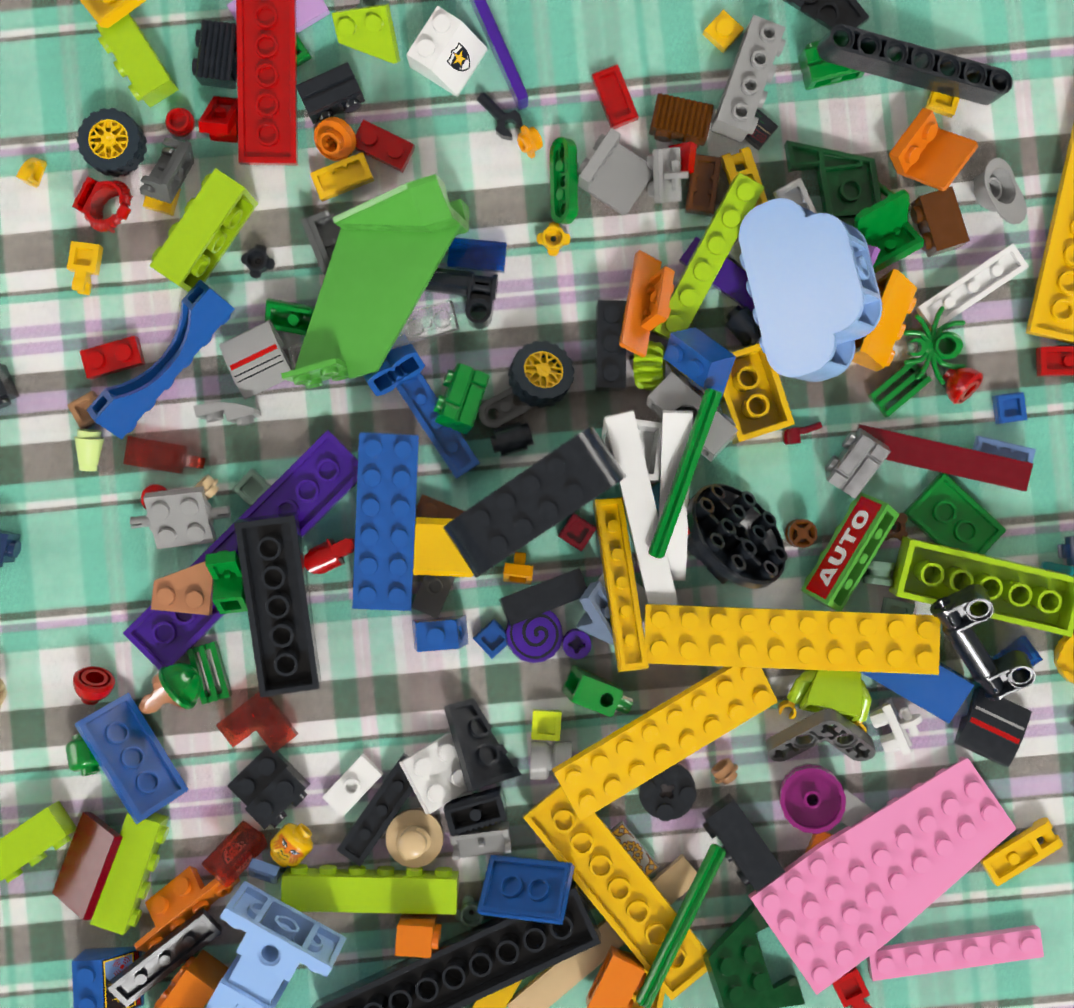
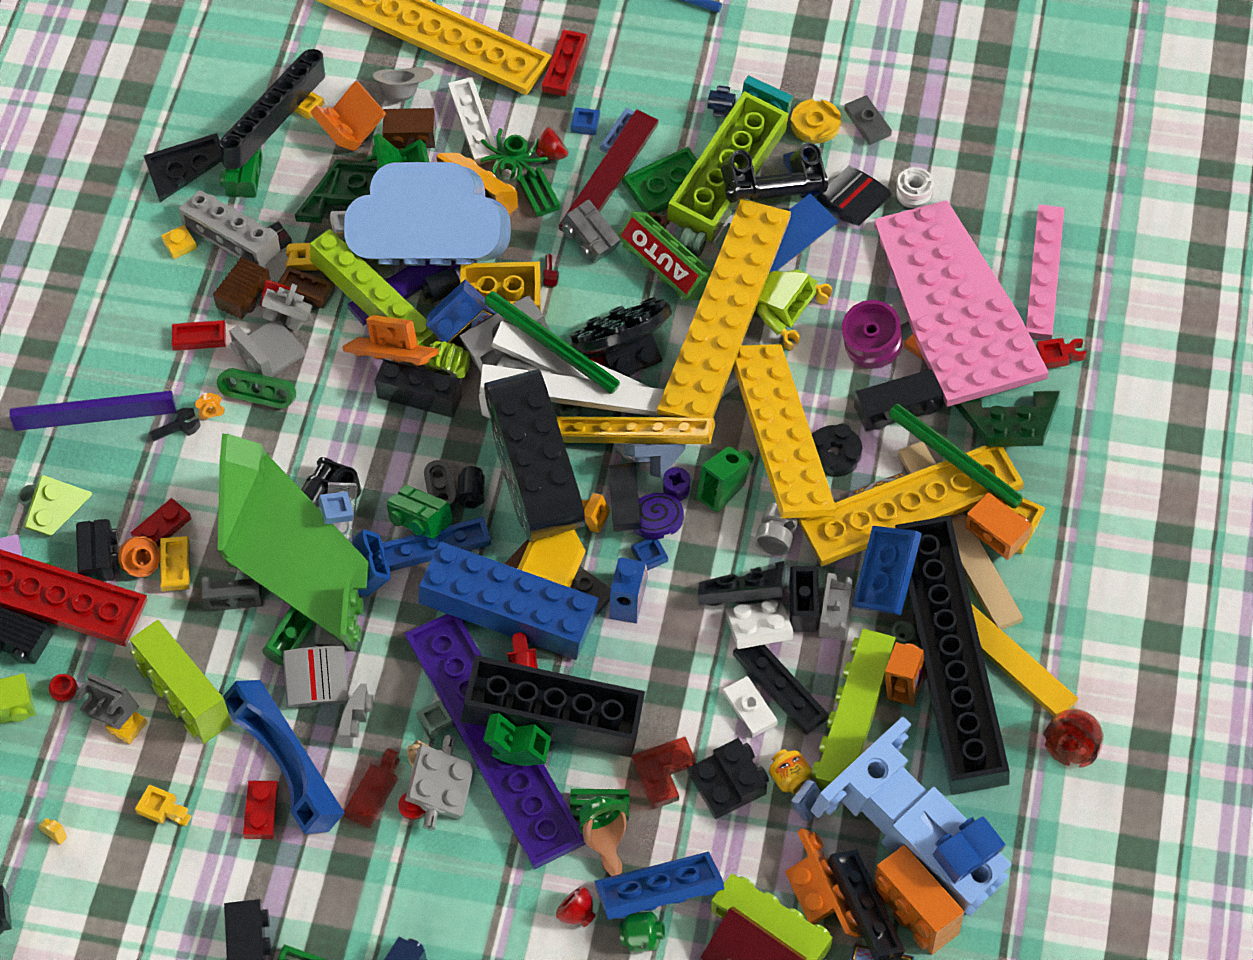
camera: 70 degrees left, 30 degrees down
(79, 409) = (302, 847): medium nougat tile -> none
(88, 448) = (340, 850): yellowish green cone -> none
(94, 197) = (97, 780): red piece -> none
(111, 142) = (56, 750): black wheel -> none
(185, 591) = (512, 791): nougat wing -> none
(220, 119) = (78, 648): red slope -> none
(235, 853) = (782, 818): clear red slope -> none
(249, 259) = (219, 649): black plate -> none
(414, 838) = (817, 665): tan plate -> none
(417, 319) = (336, 507): none -> medium blue plate
(446, 51) = (100, 450): white slope -> none
(477, 255) = (299, 464): clear blue plate -> none
(541, 374) = (421, 446): black wheel -> none
(546, 725) = (743, 527): neon yellow plate -> none
(553, 230) = (300, 406): yellow plate -> none
(577, 532) = (579, 460): dark red tile -> none
(724, 771) = (831, 399): medium nougat plate -> none
(805, 536) = (639, 284): reddish brown wheel -> none
(818, 729) = (814, 311): dark grey beam -> none
(898, 738) = (827, 260): white hips -> none
(1021, 852) = (968, 202): yellow plate -> none
(1034, 794) = (914, 187): none -> white wheel

